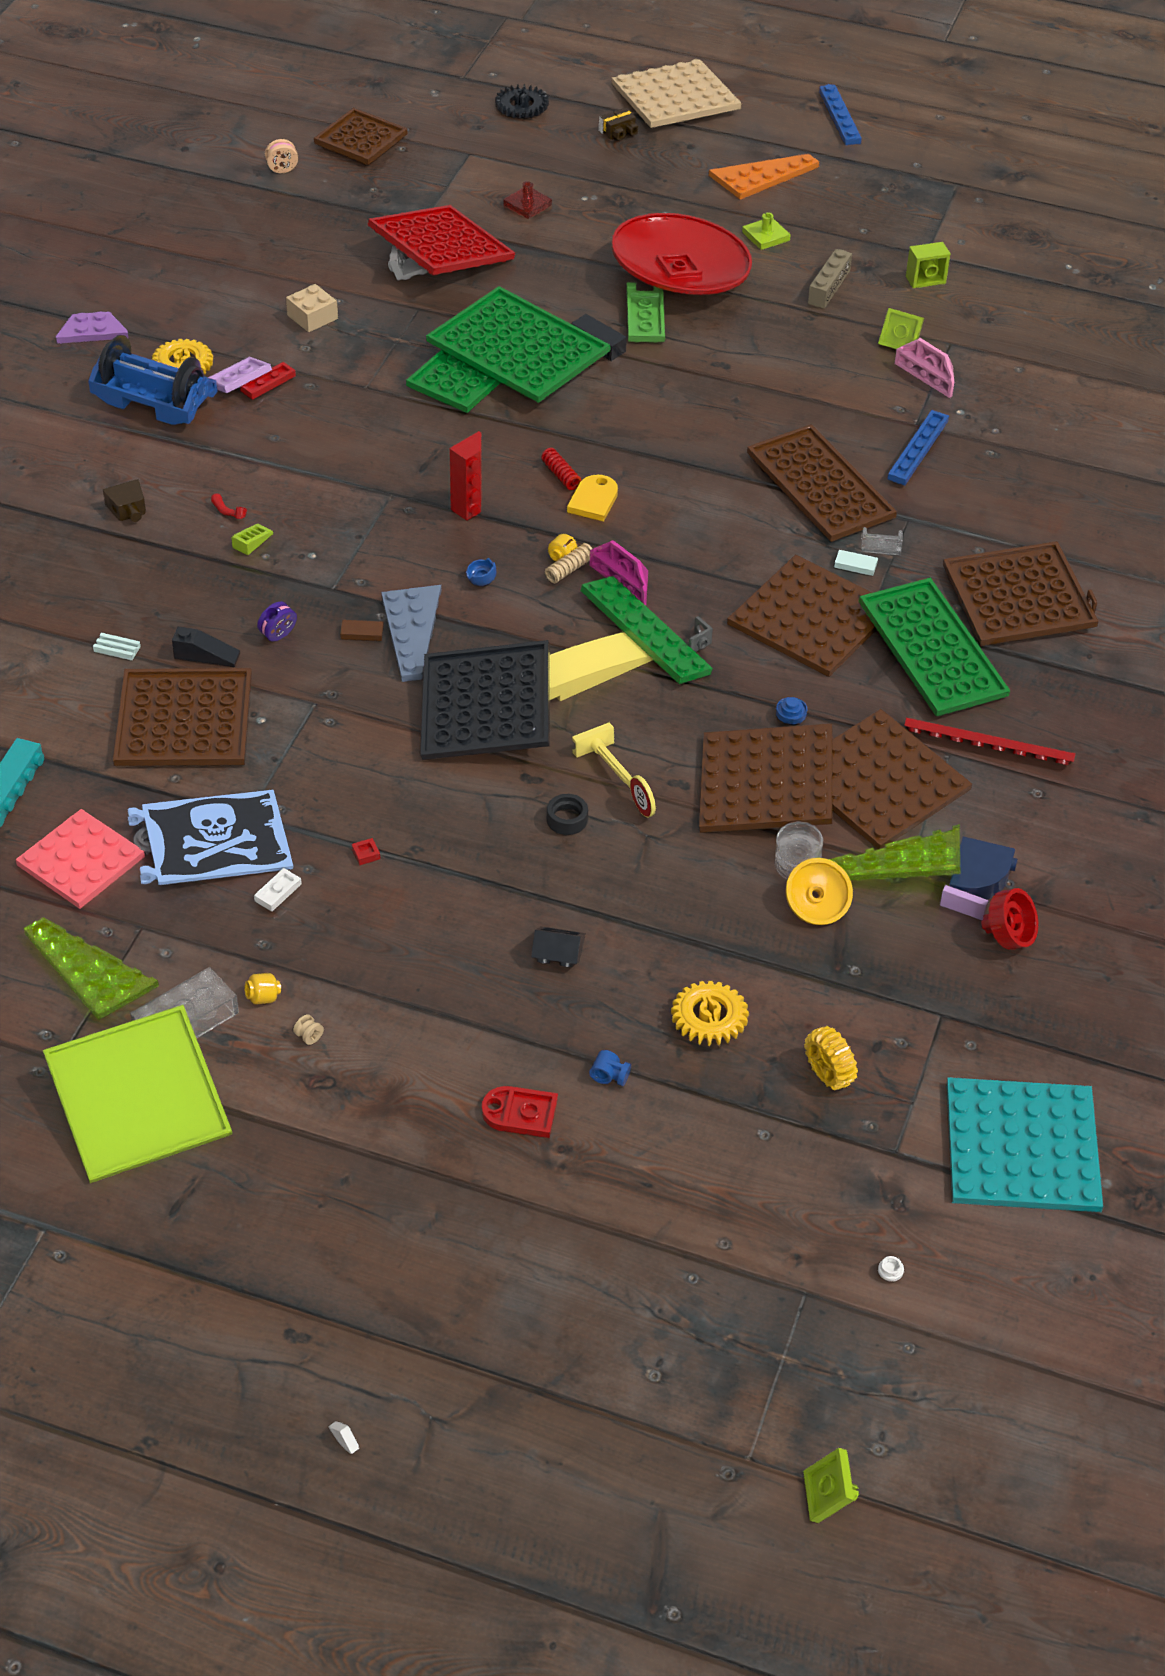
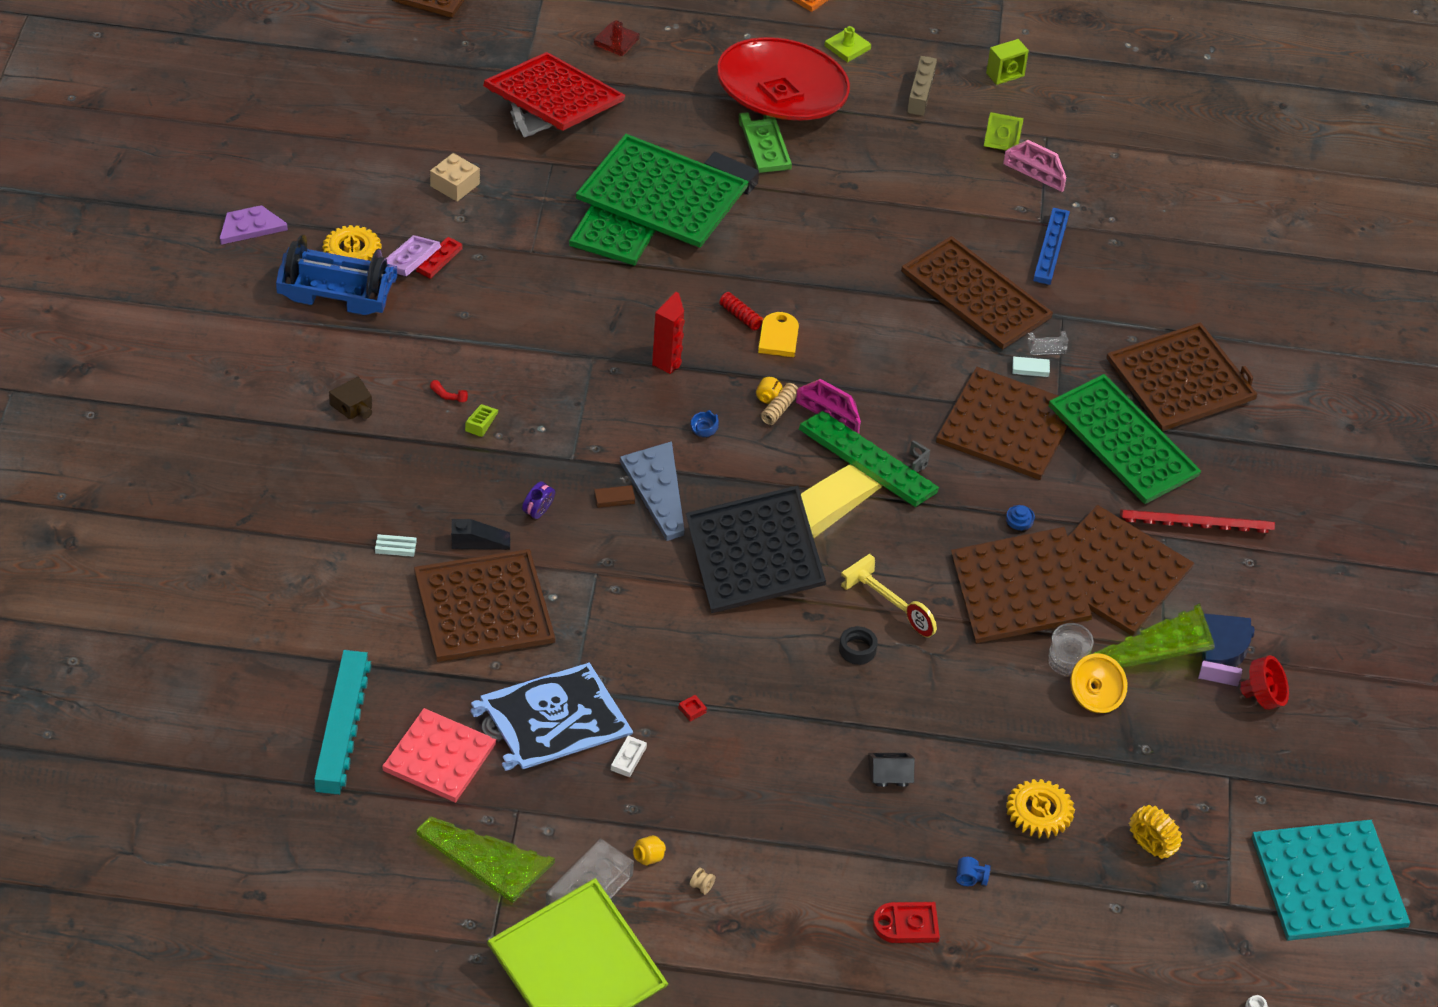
camera: 15 degrees left, 0 degrees up
(281, 156) = (369, 20): light nougat head -> none

